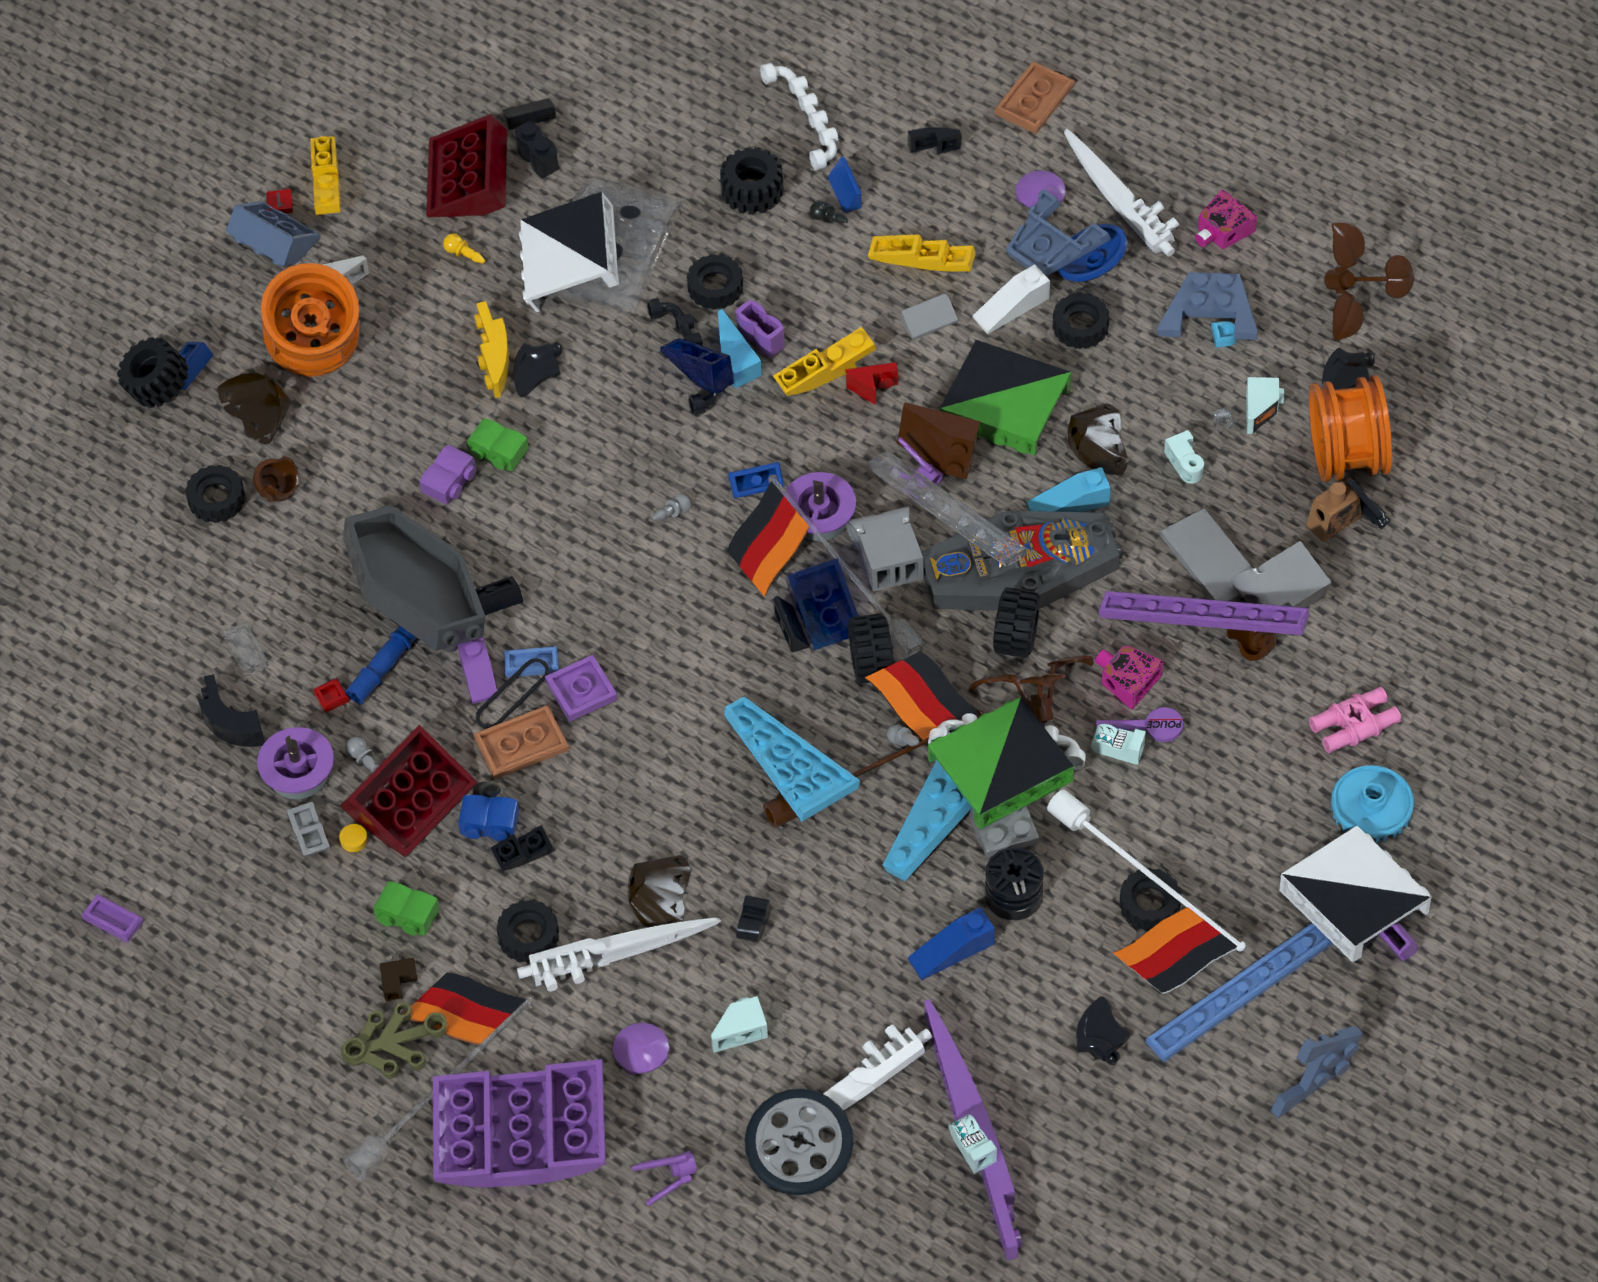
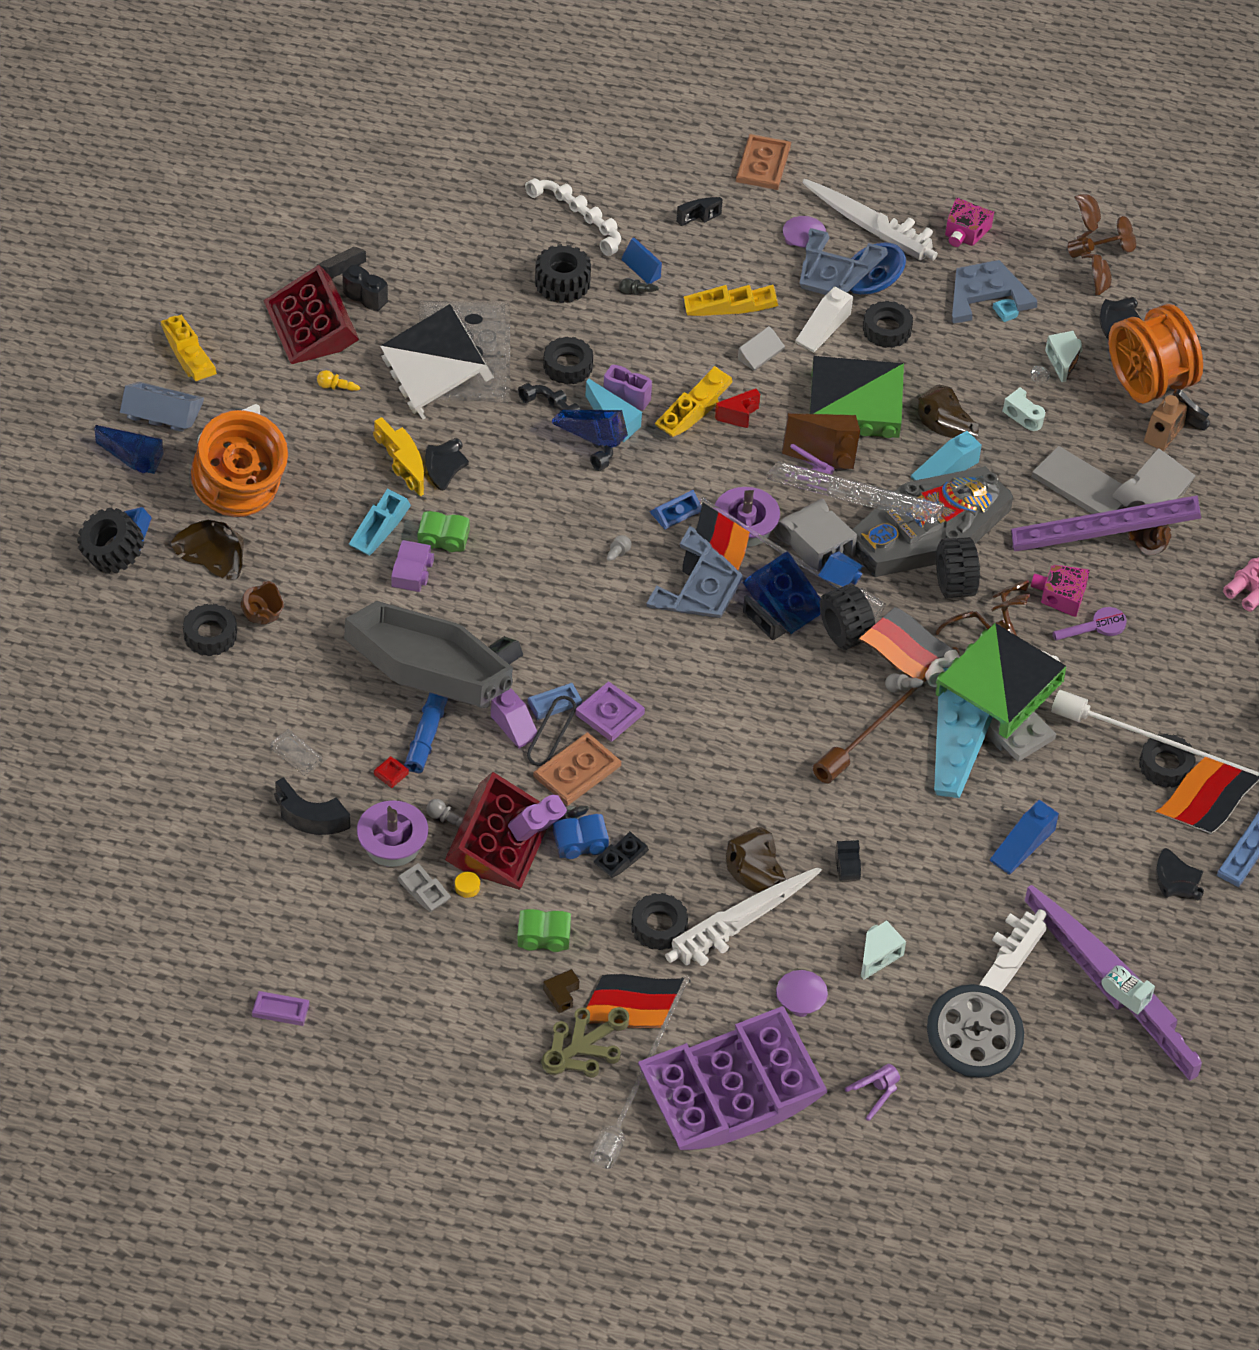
camera: 25 degrees left, 5 degrees down
(226, 278) = (133, 449): none -> clear blue slope
(280, 200) = (154, 377): red tile -> none
(437, 418) = (380, 522): none -> medium azure slope
(448, 786) = (537, 817): none -> medium lavender brick
(745, 575) = (707, 588): none -> sand blue wing
(796, 768) = (834, 729): medium azure wing -> none
(890, 593) = (841, 570): none -> blue slope
(1014, 883) = (1054, 774): black wheel -> none
(1119, 743) = (1082, 644): light aqua leg -> none

